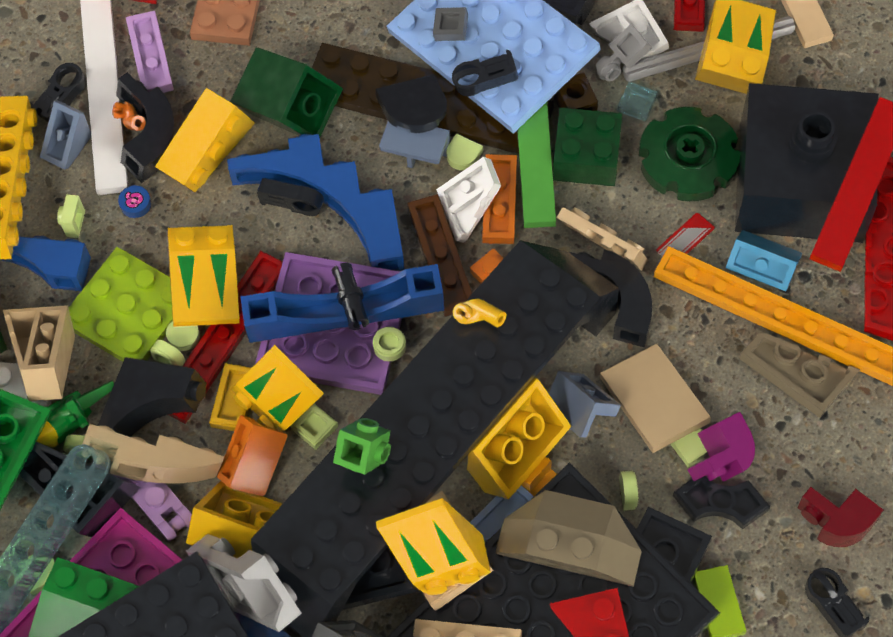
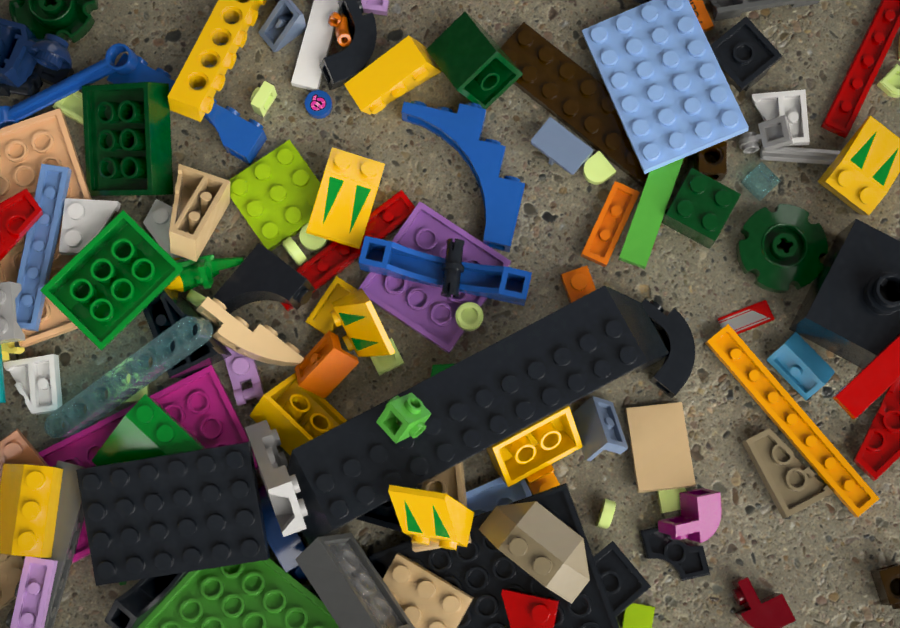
camera: 20 degrees right, 15 degrees up
(290, 196) = (449, 159): black piece -> none
(413, 104) = (574, 114): black tile -> none
(440, 249) = (543, 253): reddish brown plate -> none
(450, 24) = (632, 56): dark grey plate -> none
(468, 197) = (585, 214): white wing -> none
(478, 310) = (544, 336): yellow arm -> none
(491, 73) = (648, 115): black piece -> none
(603, 236) = (664, 274): tan wing -> none

